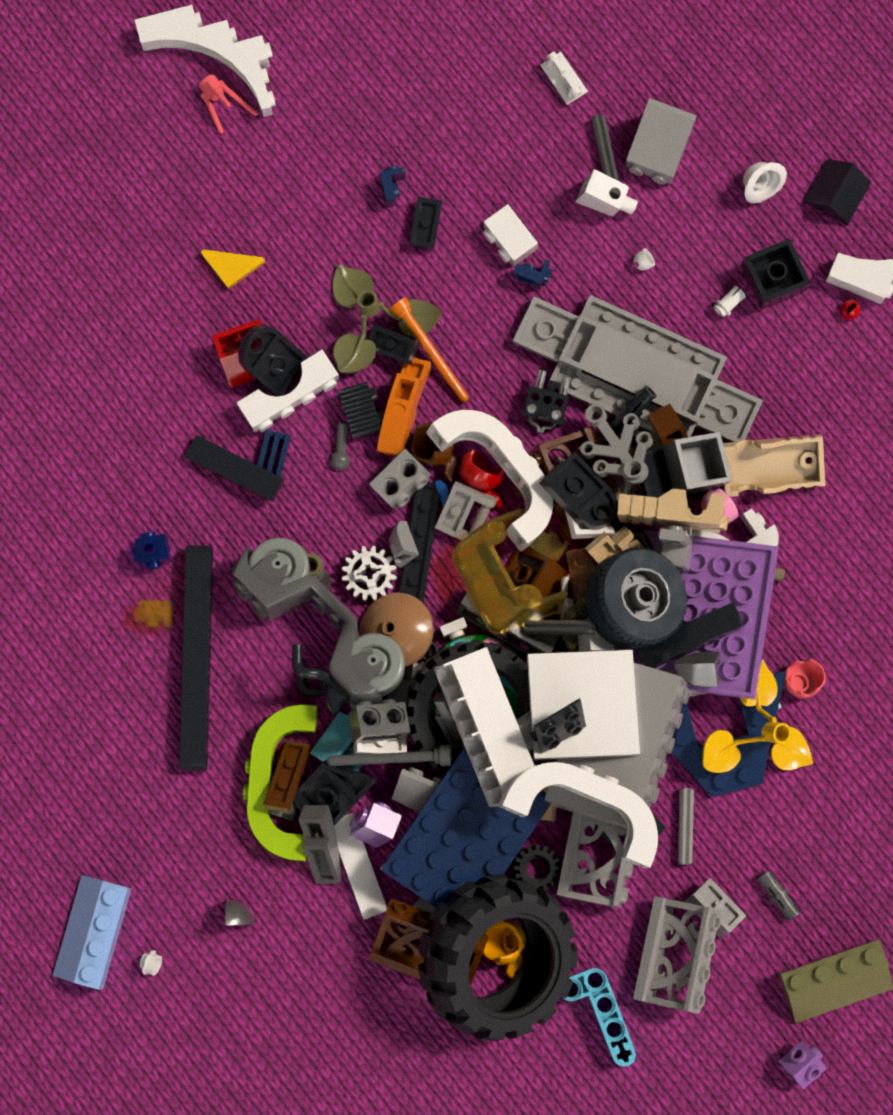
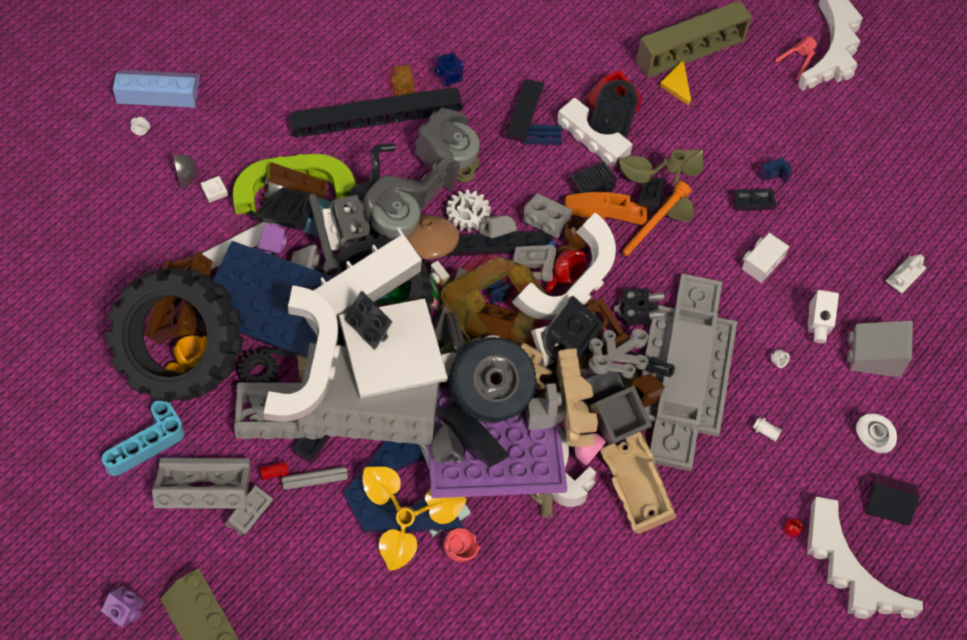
camera: 70 degrees right, 20 degrees down
(179, 232) = (693, 39): none -> olive brick
(269, 882) = (214, 189): none -> white plate
(320, 844) = (249, 211): dark grey slope -> none
(340, 459) = (552, 179): dark grey bar -> none
(528, 274) = (739, 283): dark blue bracket -> none
(604, 146) = (860, 313): dark grey axle -> none
(669, 870) = (274, 470): none -> red pin
(775, 273) = (802, 455): black brick -> none
(779, 895) = (269, 563): dark grey pin -> none

